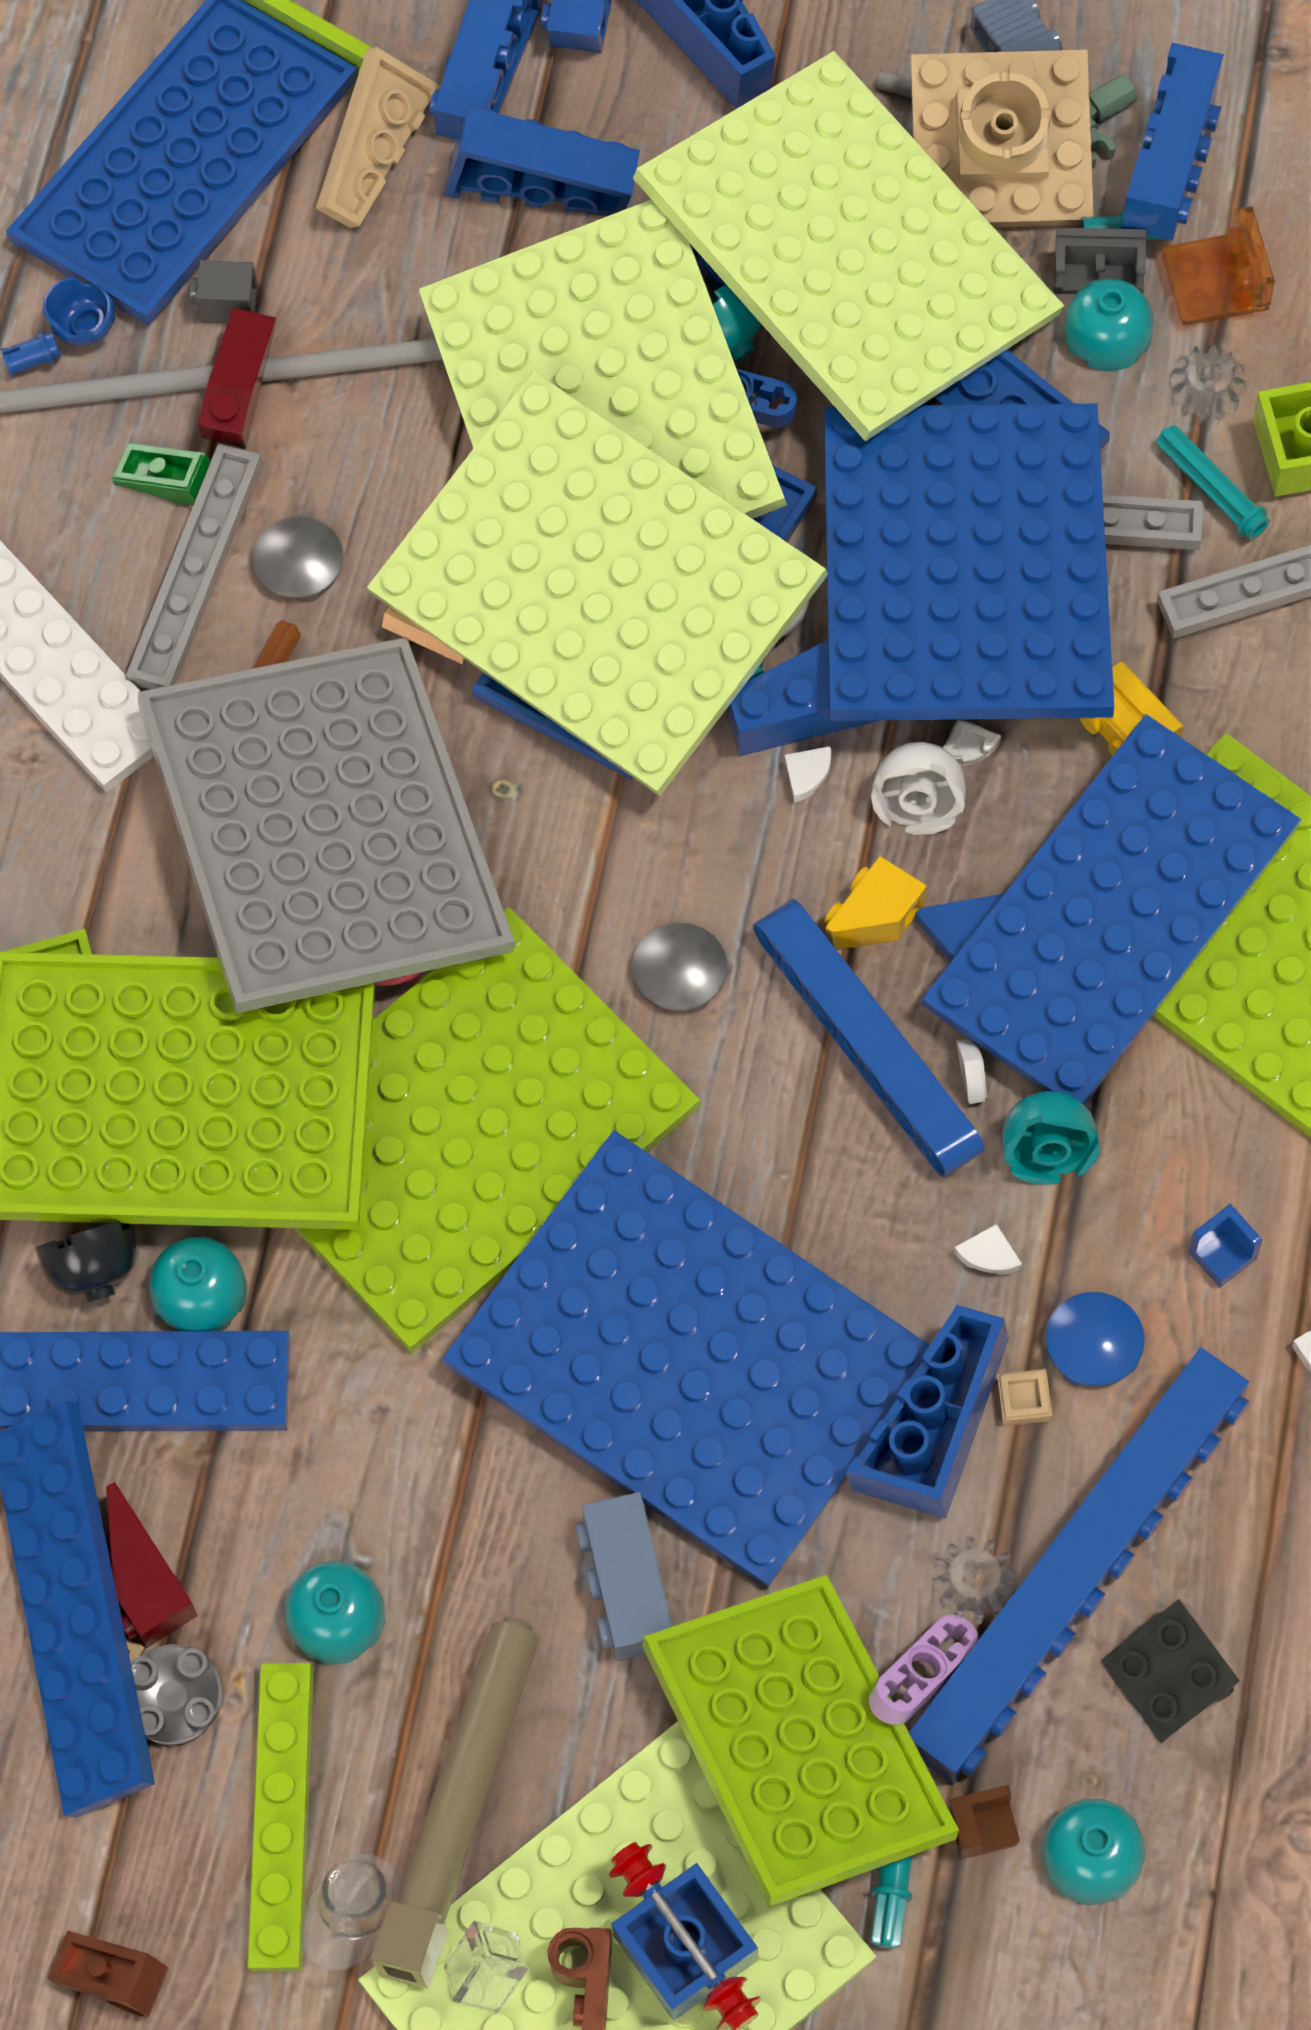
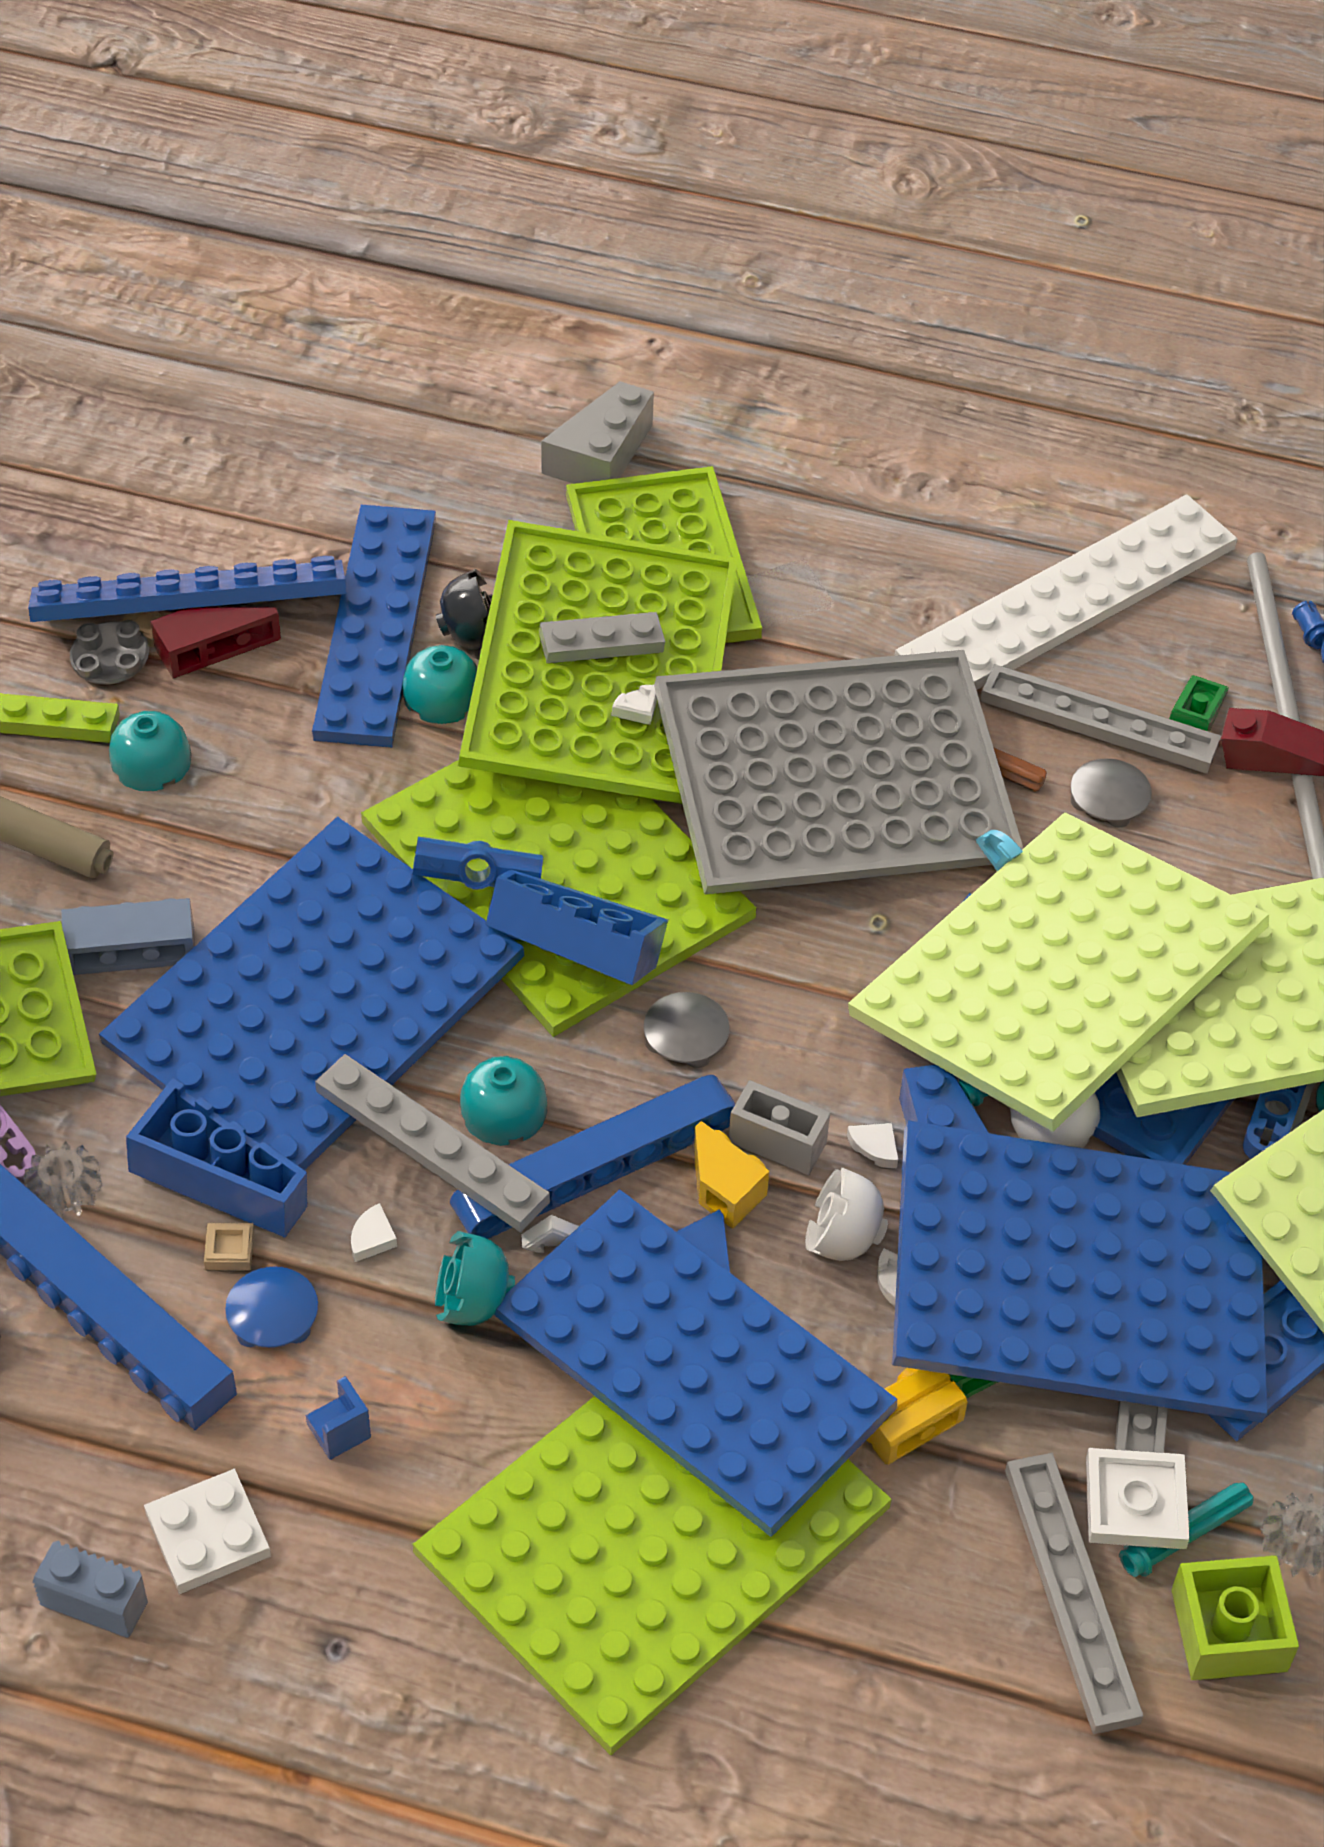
camera: 90 degrees right, 15 degrees down
(154, 1083) = (601, 637): none -> light grey plate
(252, 1035) = (636, 705): none -> white tile
(420, 654) = (998, 848): none -> medium azure tile
(508, 1188) = (449, 861): none -> blue piece
(597, 1062) = (577, 925): none -> blue wedge
(803, 1141) = (503, 1100): none -> teal cylinder
(817, 853) = (779, 1127): none -> light grey brick
(890, 1191) = (433, 1142): none -> light grey plate
(1208, 511) = (1137, 1498): none -> white plate

